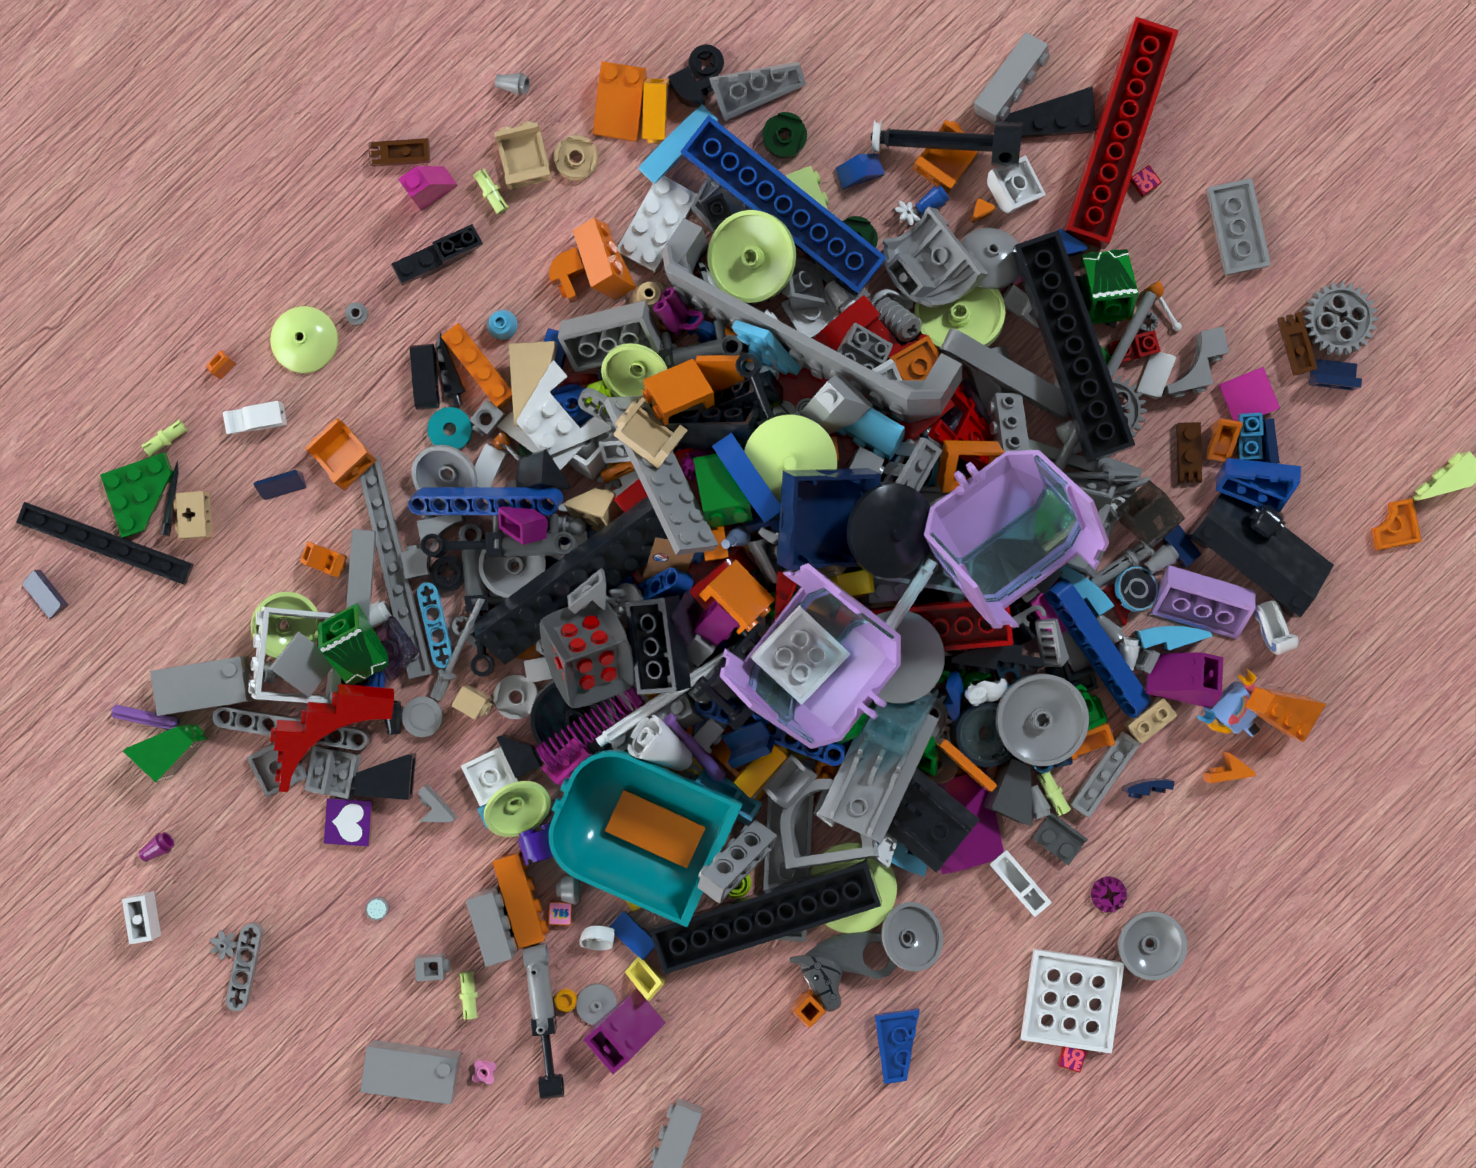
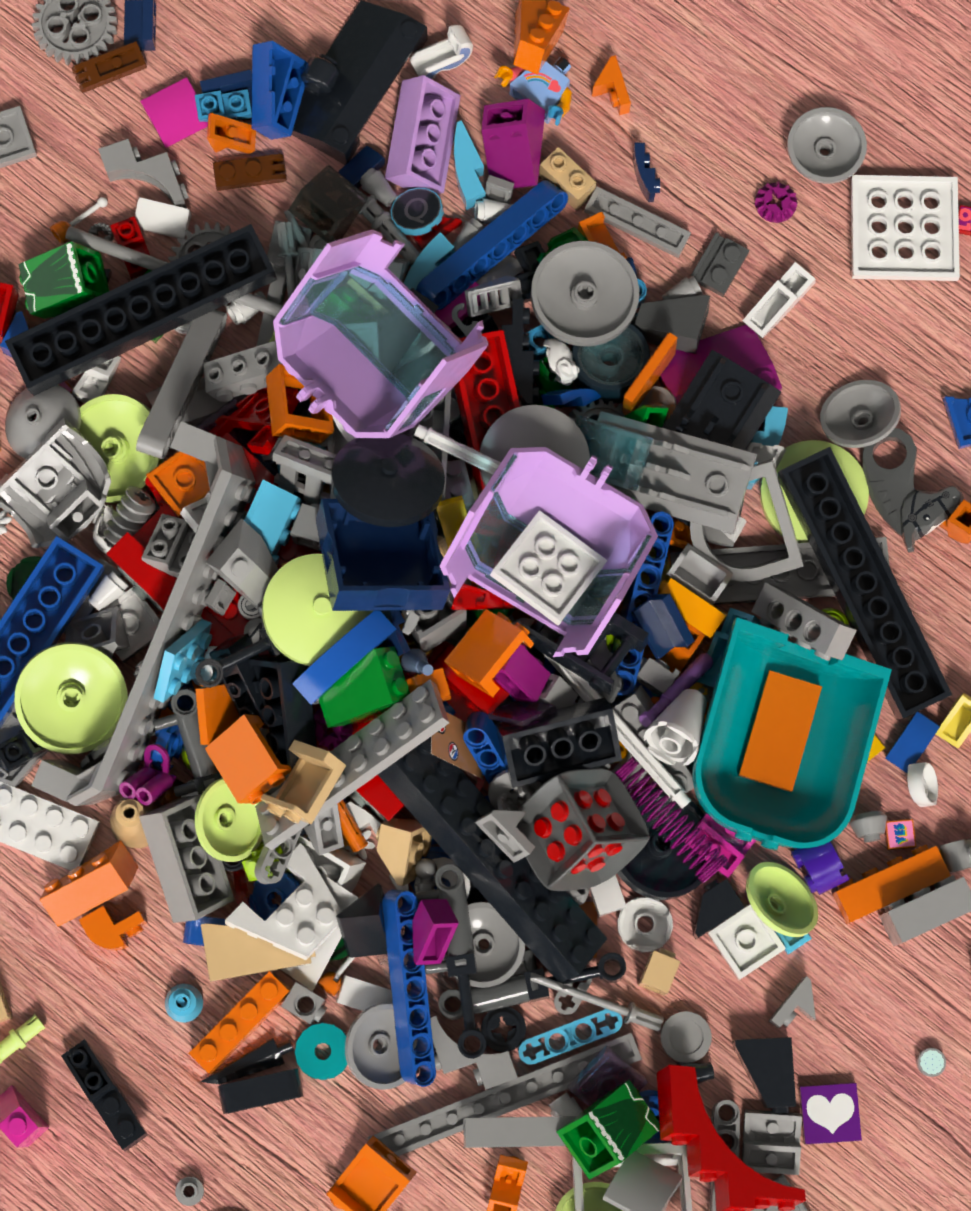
camera: 100 degrees left, 10 degrees down
(814, 382) = (220, 597): none -> light grey tile
(1053, 793) = (668, 276): yellowish green pin -> none

